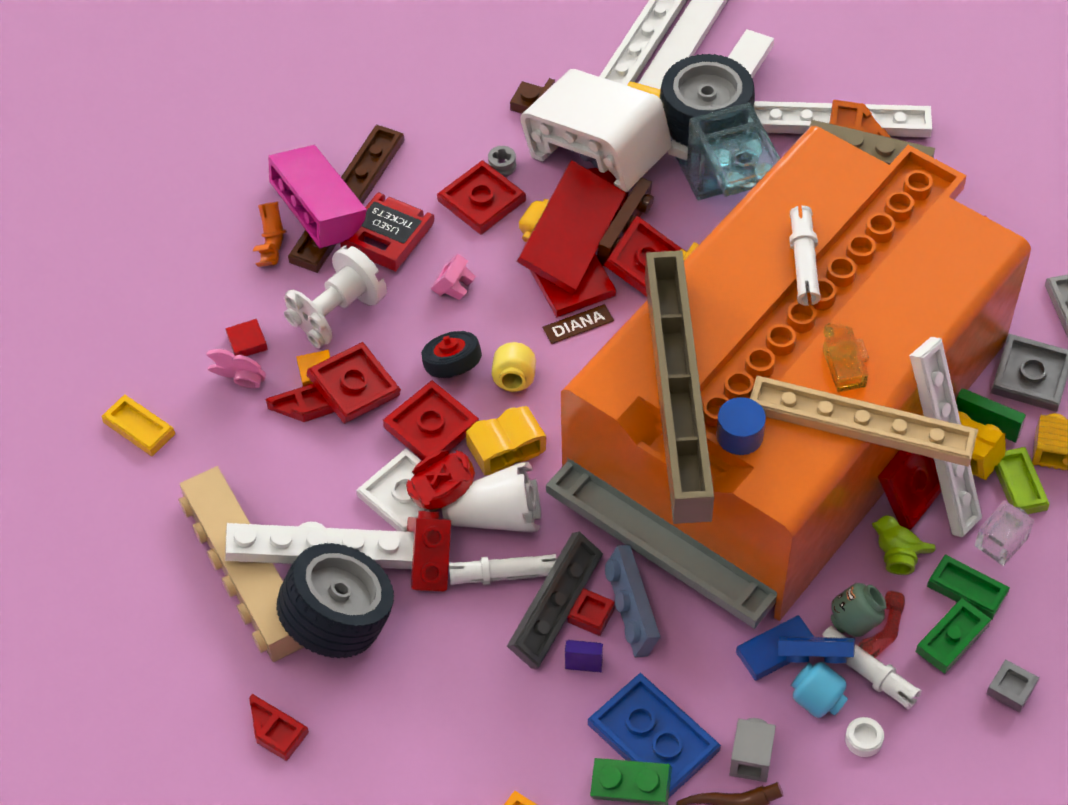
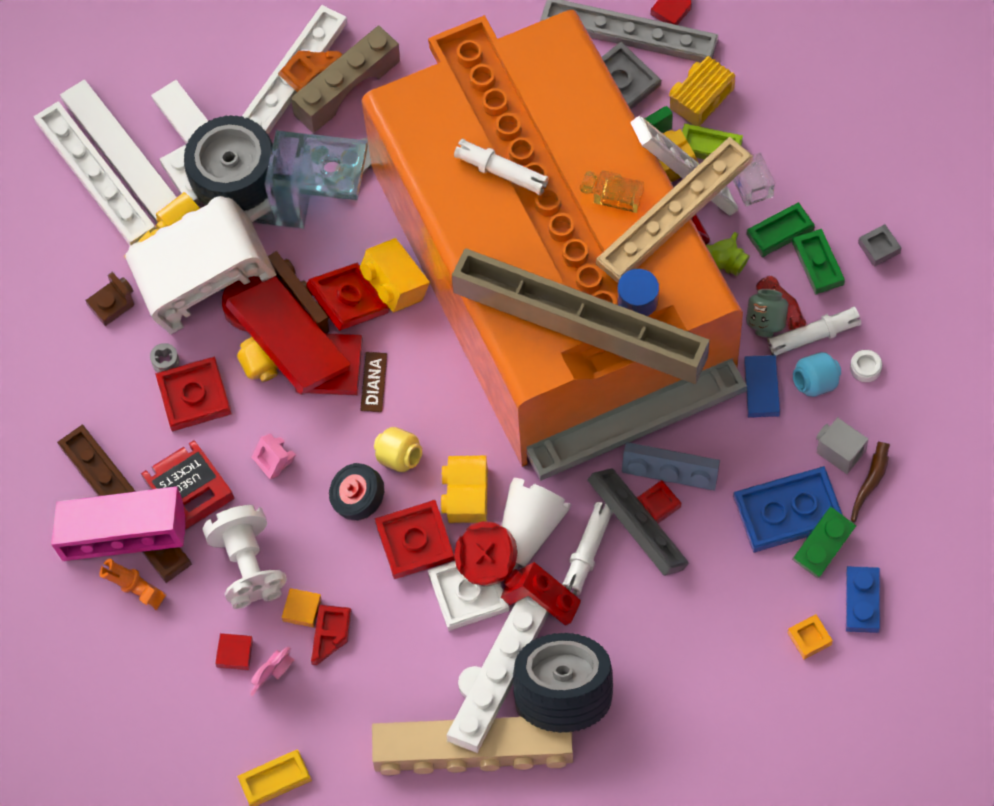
camera: 60 degrees left, 10 degrees up
(276, 729) = (637, 785): red tile -> none
(353, 382) = (338, 582): red tile -> none
(583, 656) = (700, 524): dark purple tile -> none
(832, 649) = (793, 348): blue plate -> none

